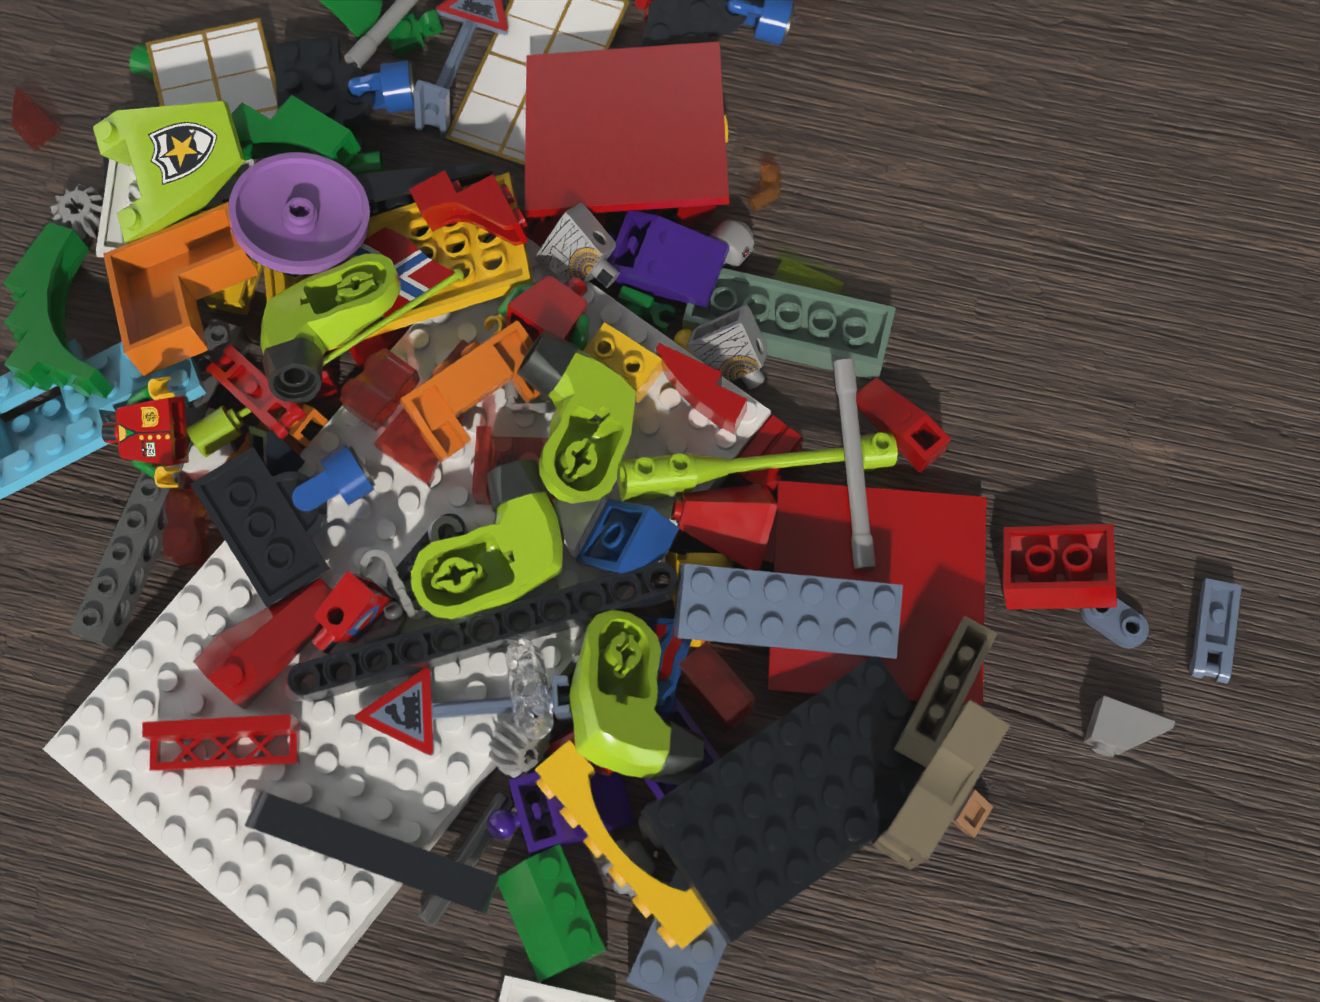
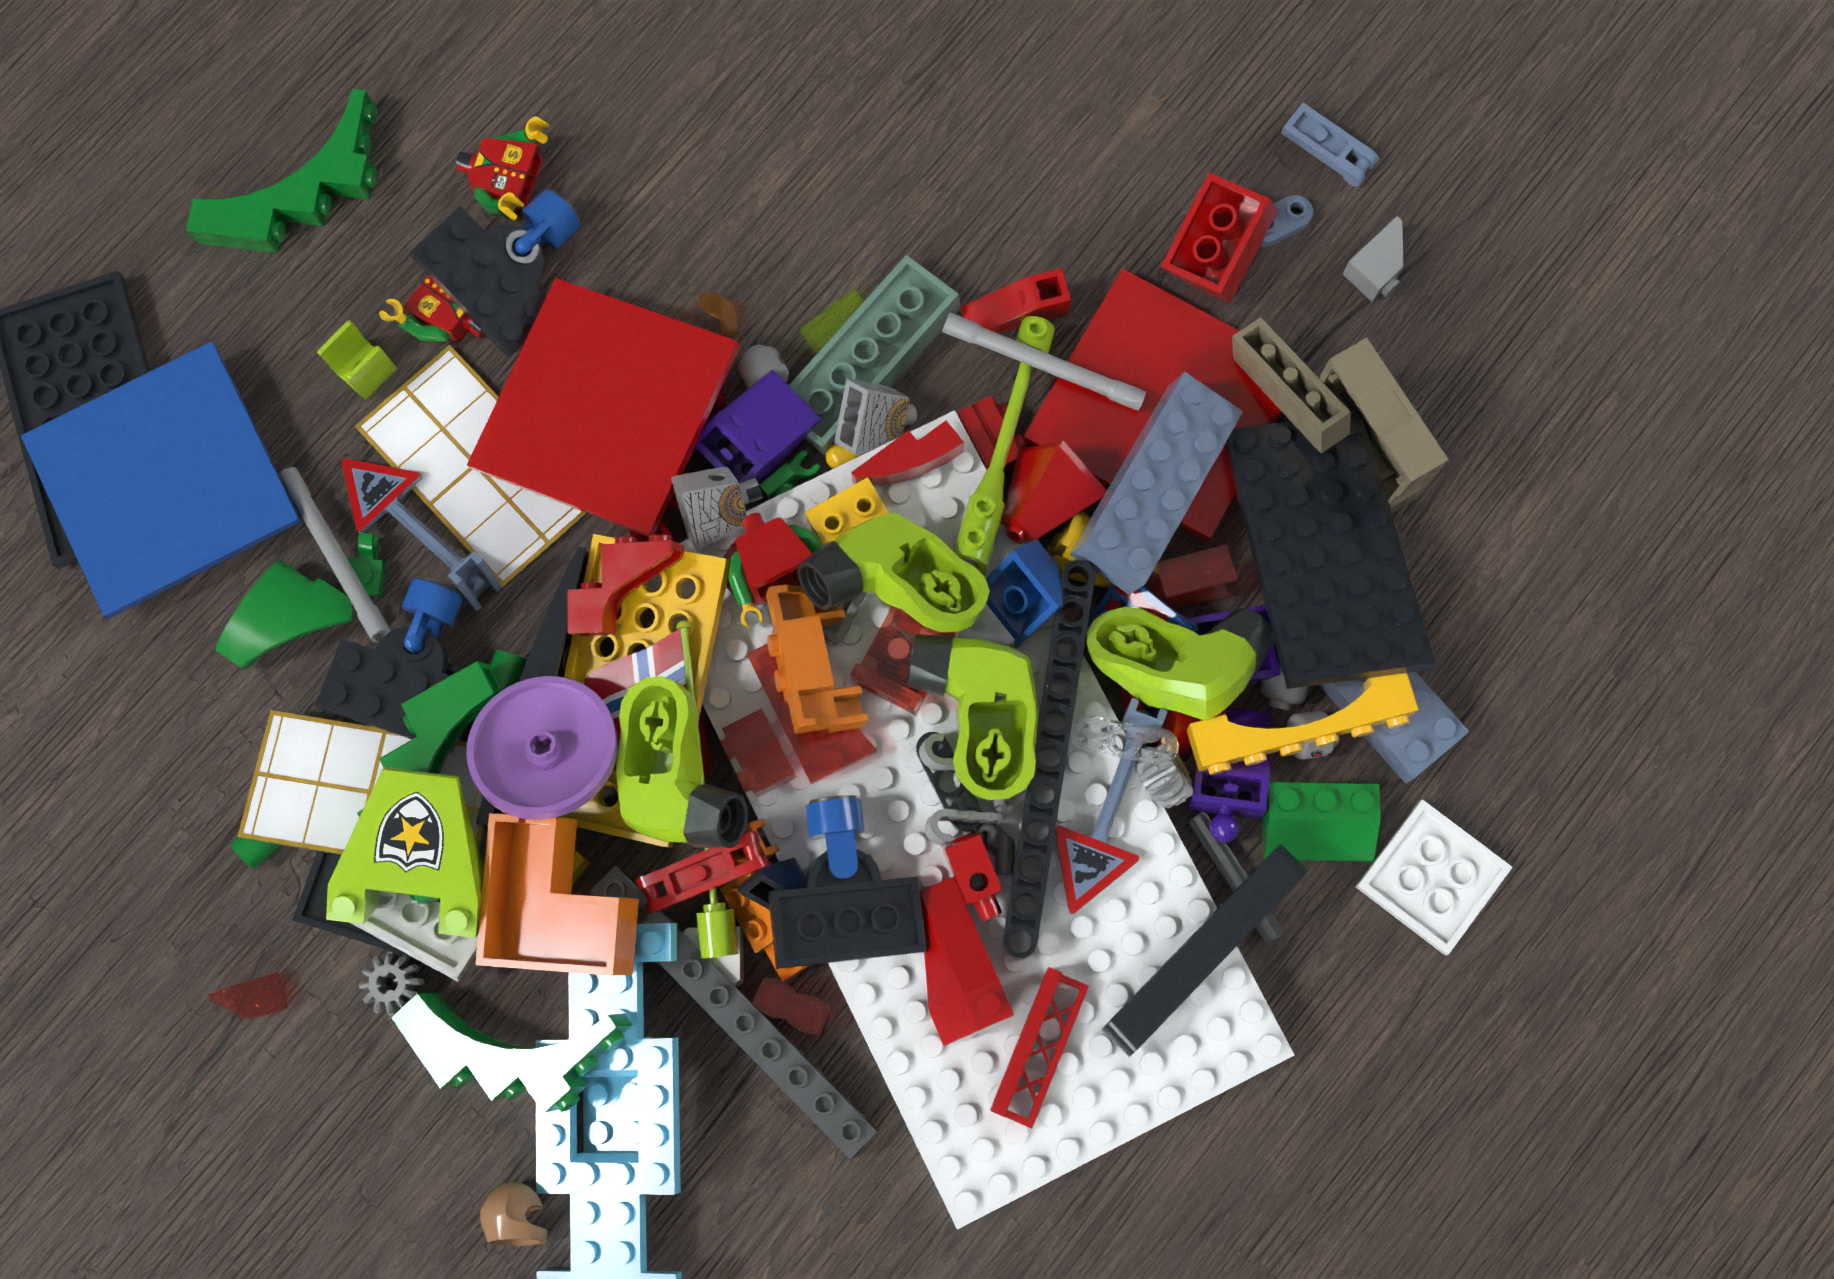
camera: 65 degrees left, 5 degrees up
(152, 432) = (698, 990): torso -> none

